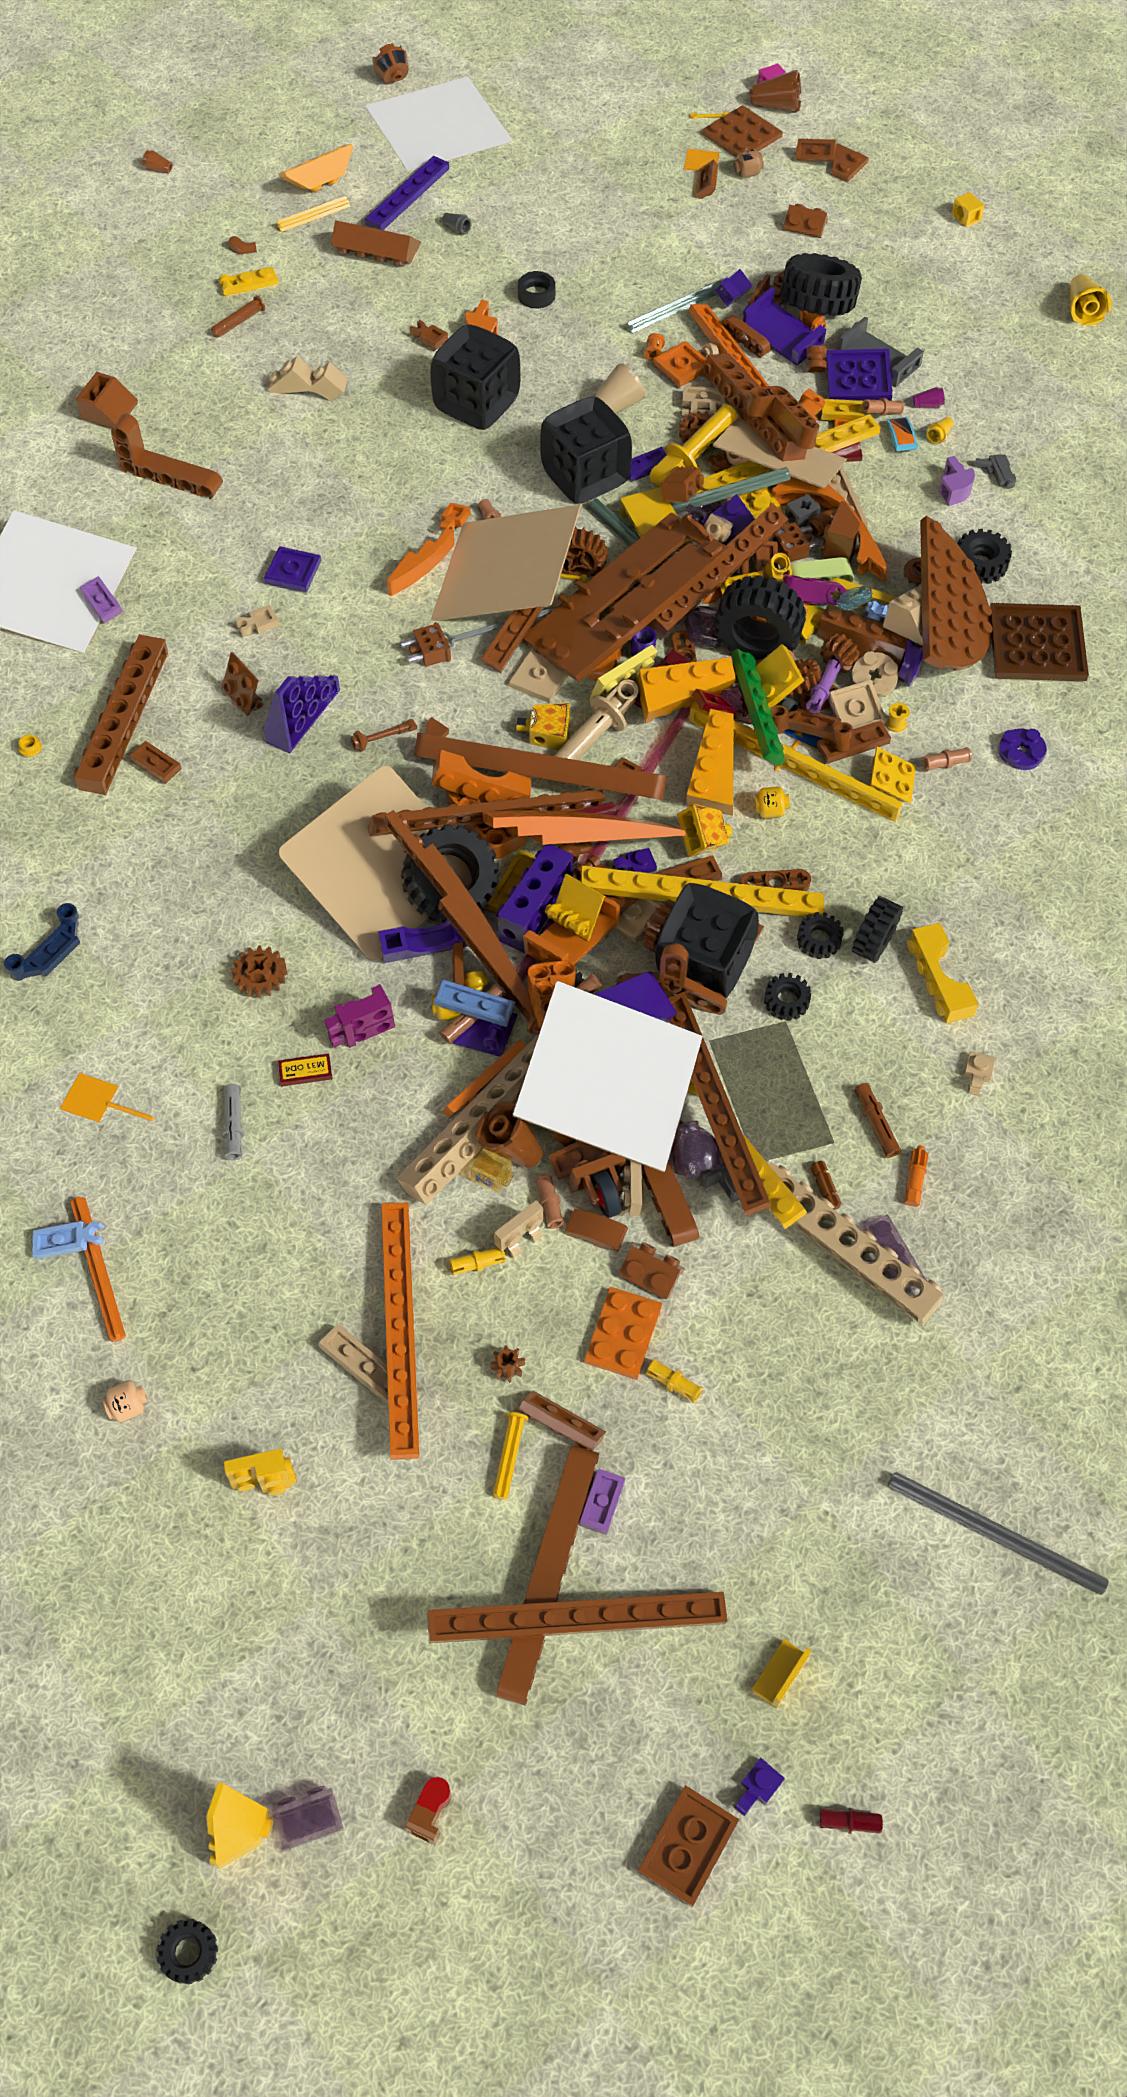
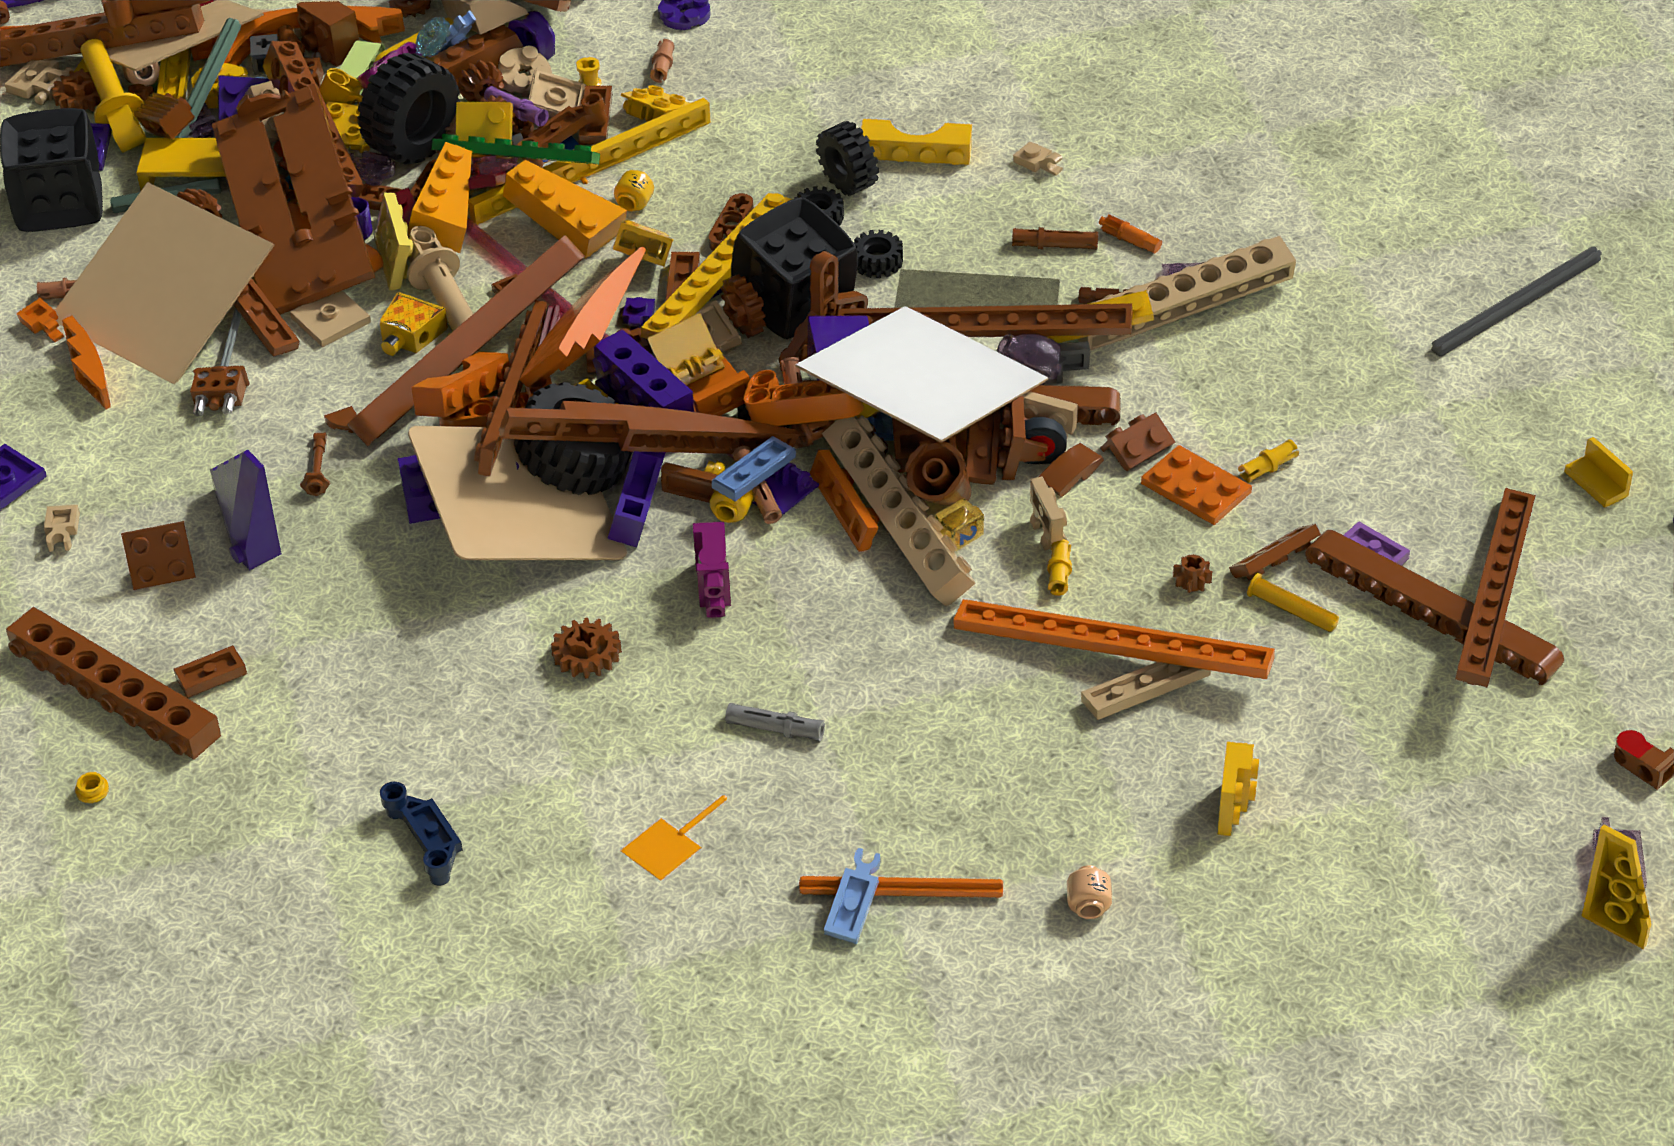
camera: 65 degrees left, 15 degrees down
(305, 1069) = (740, 646): tile -> none
(549, 1201) = (1013, 493): nougat pin -> none

